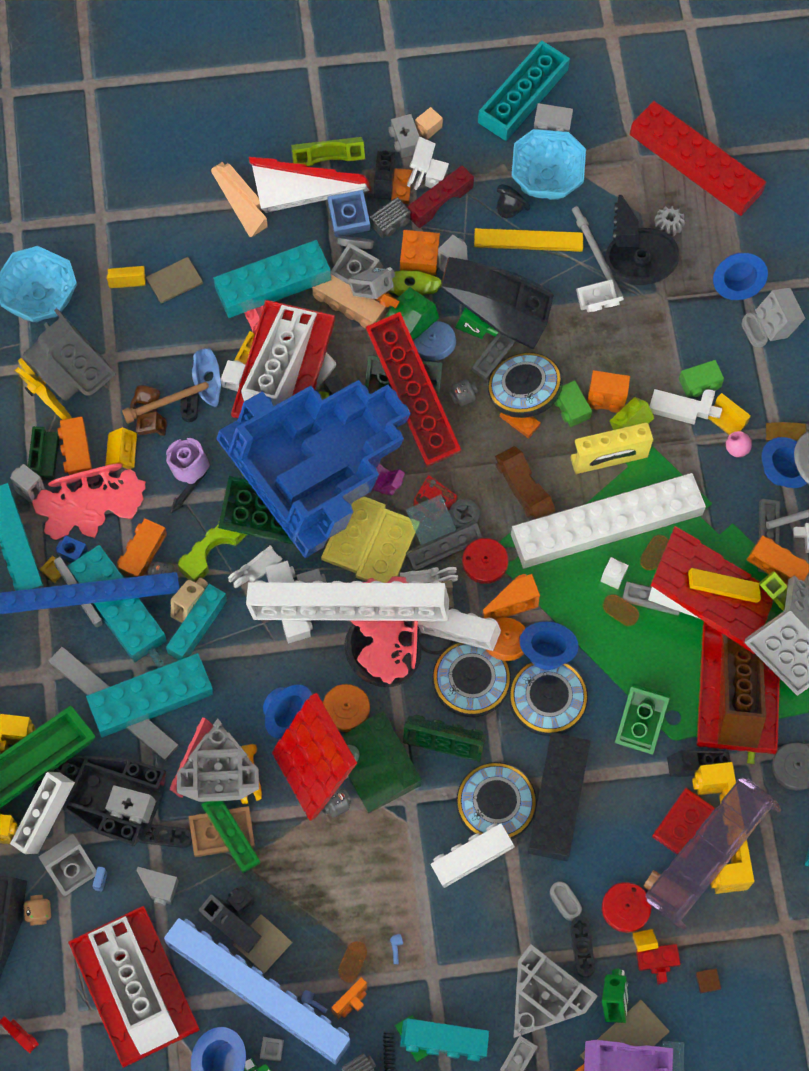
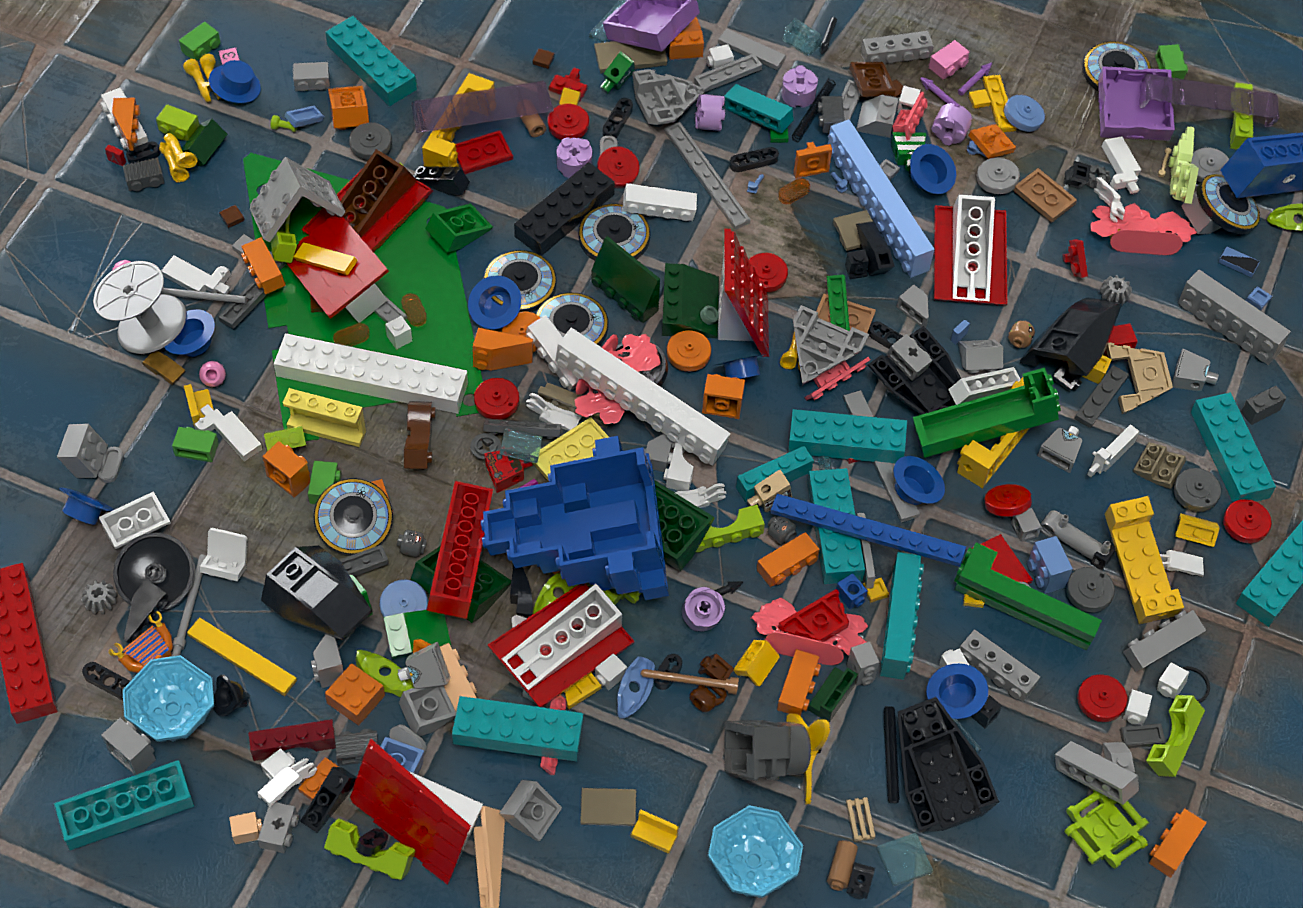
camera: 150 degrees left, 10 degrees down
(60, 679) = (917, 481): none -> blue hose
(84, 504) = (818, 620): none -> red wing
(230, 241) = (530, 809): none -> light grey slope
(284, 668) = (723, 396): none -> orange brick
(324, 154) = (372, 842): none -> black beam
(324, 838) = (770, 270): none -> red wheel
(429, 970) = (749, 165): none -> black beam
(449, 928) = (707, 175): none -> light grey tile
(492, 1001) = (709, 112): none -> lavender brick
(541, 879) = (619, 165): none -> red wheel
(584, 872) = (573, 155): none -> lavender brick
(598, 200) = (151, 644): none -> orange torso
(623, 175) = (104, 673): none -> black beam
(688, 284) = (133, 520): none -> white slope

